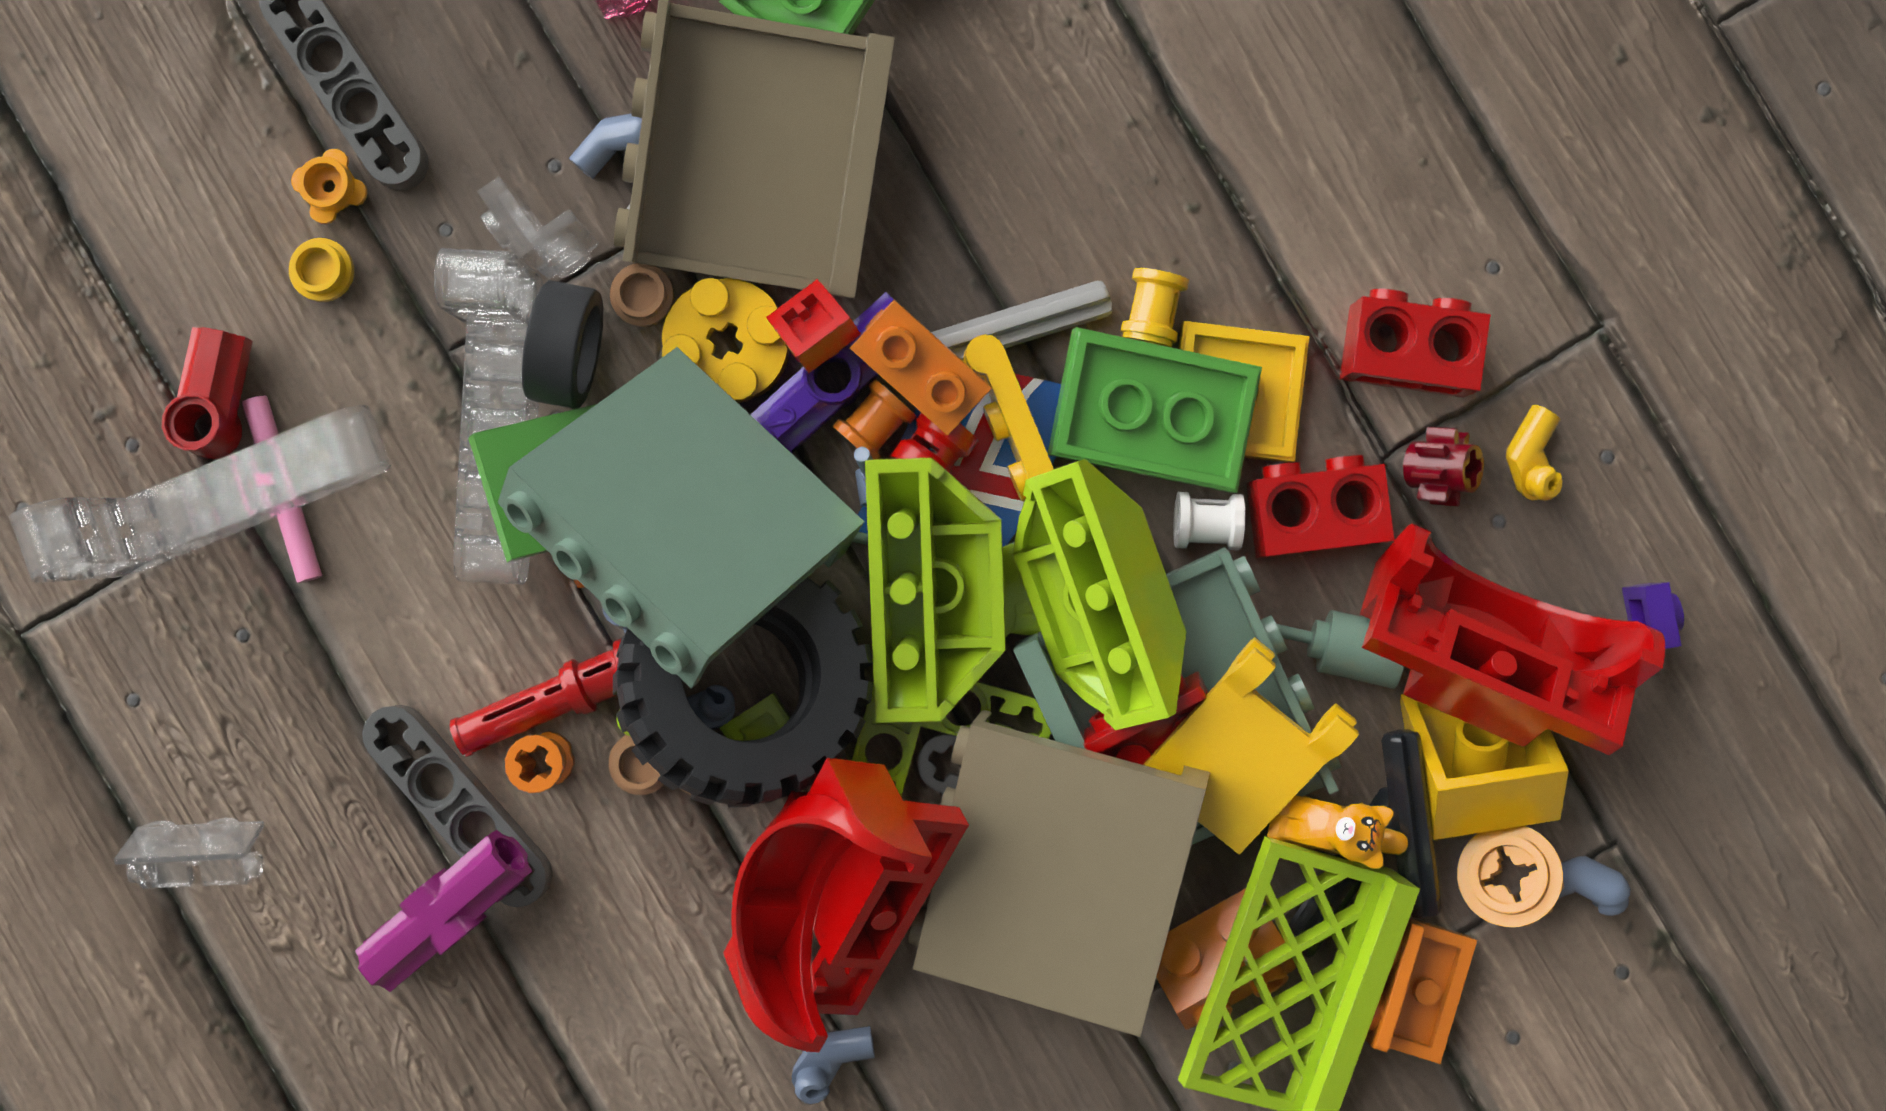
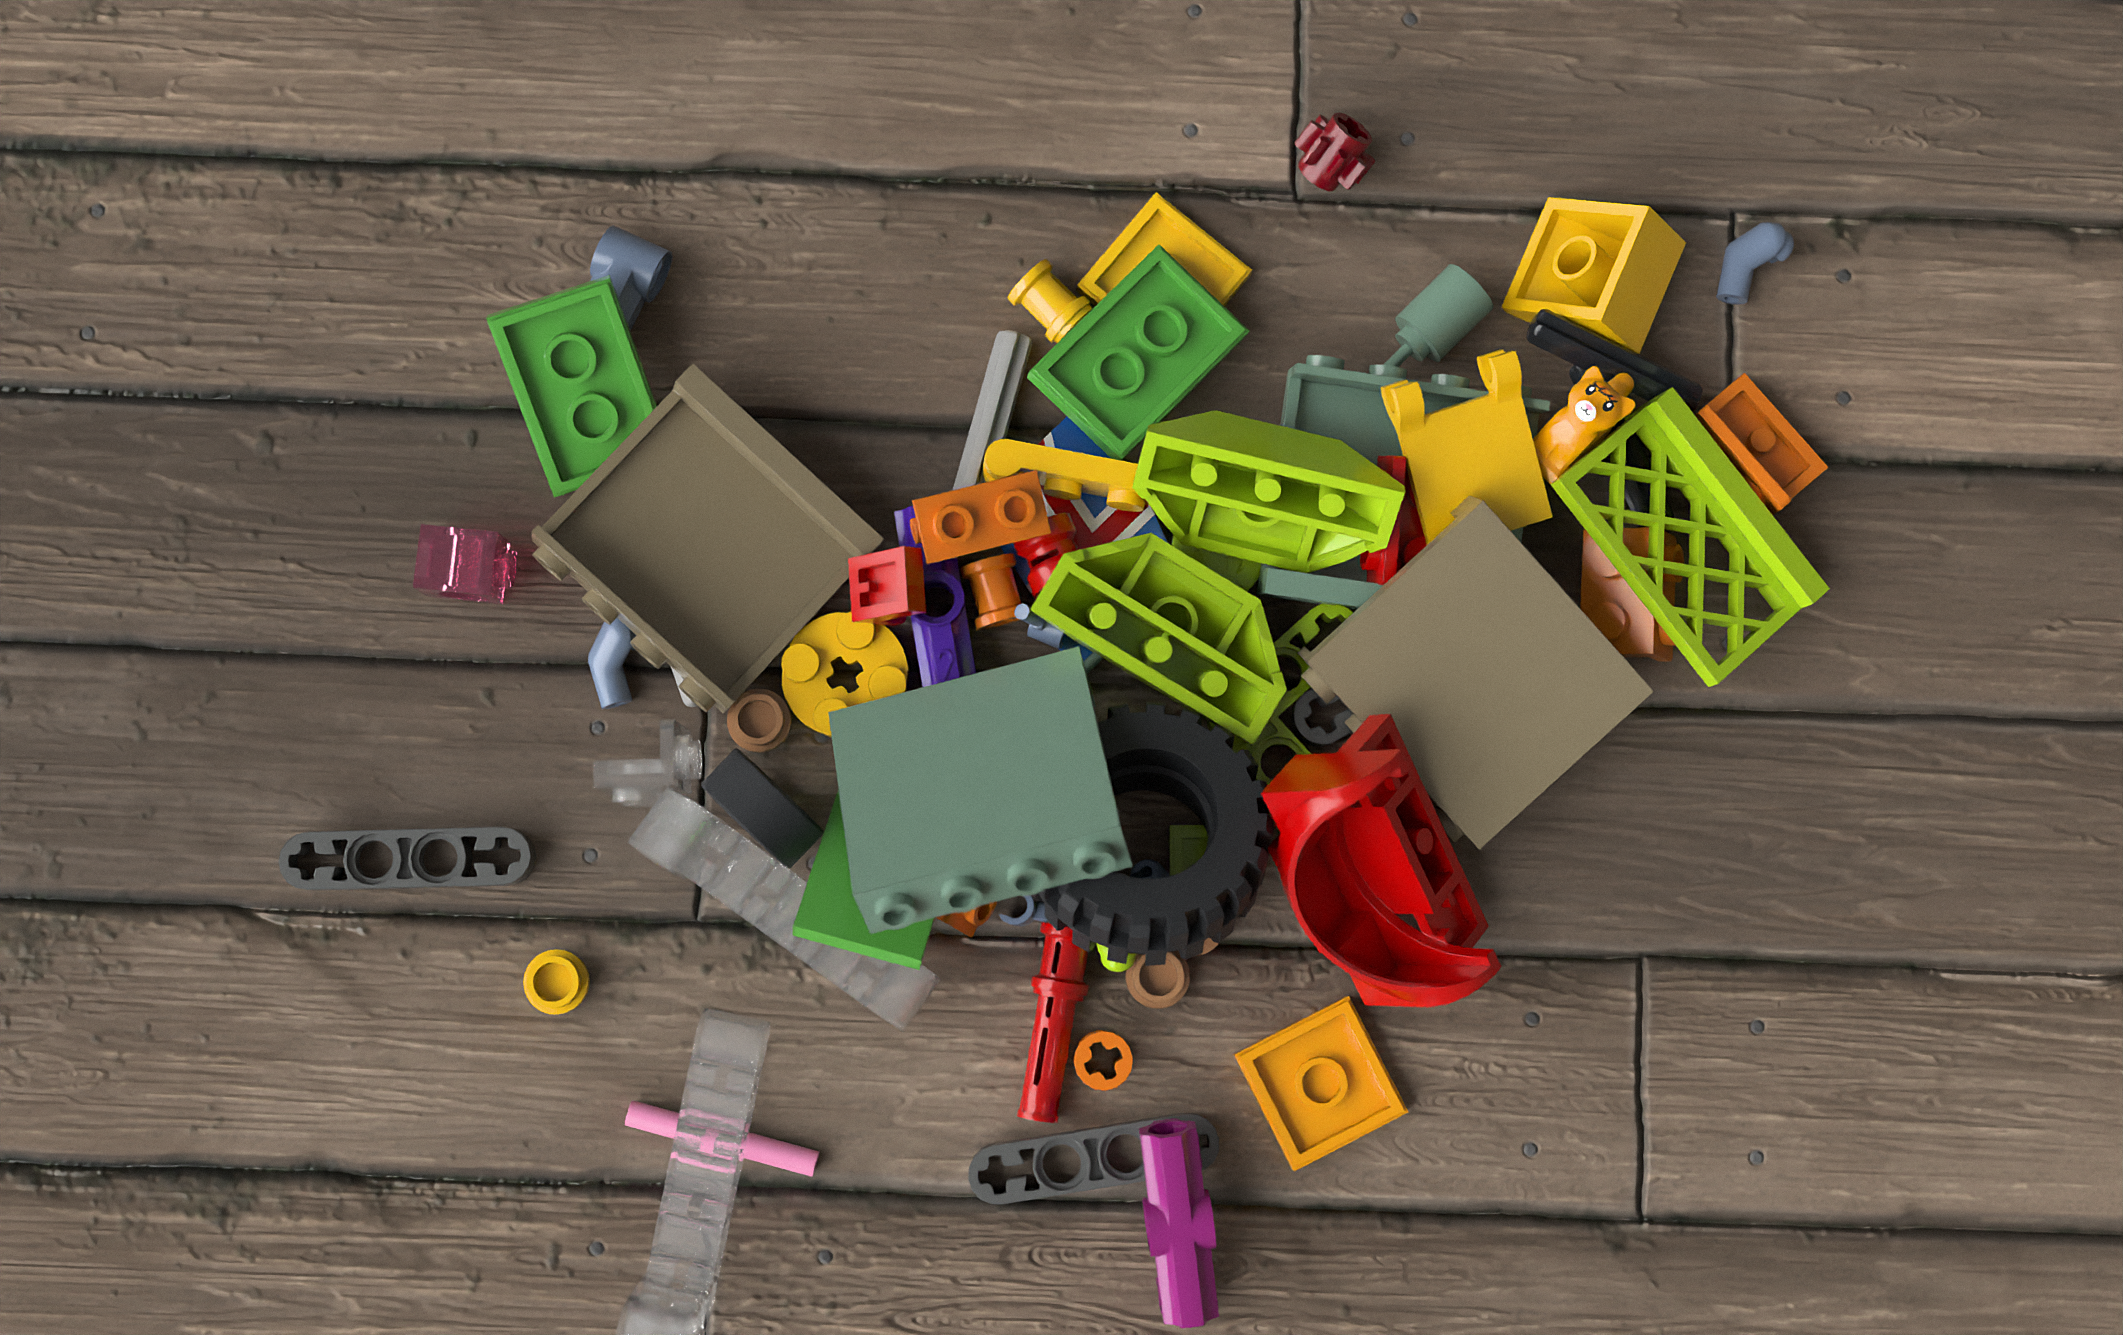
camera: 65 degrees left, 5 degrees down
(211, 384) = (594, 1139): red piece -> none
(310, 183) = (475, 916): light orange plate -> none
(639, 954) = (1320, 1083): none -> light orange tile
(816, 1071) = (1510, 985): sand blue arm -> none
(1209, 521) = (1257, 370): white bush -> none
(1320, 521) = (1314, 278): red brick -> none
(1414, 360) = (1230, 119): red brick -> none
(1497, 904) = (1682, 330): light orange gear -> none
(1502, 654) = (1522, 200): red piece -> none
(1527, 458) = (1369, 82): yellow arm -> none
(1657, 608) = (1565, 64): dark purple plate -> none

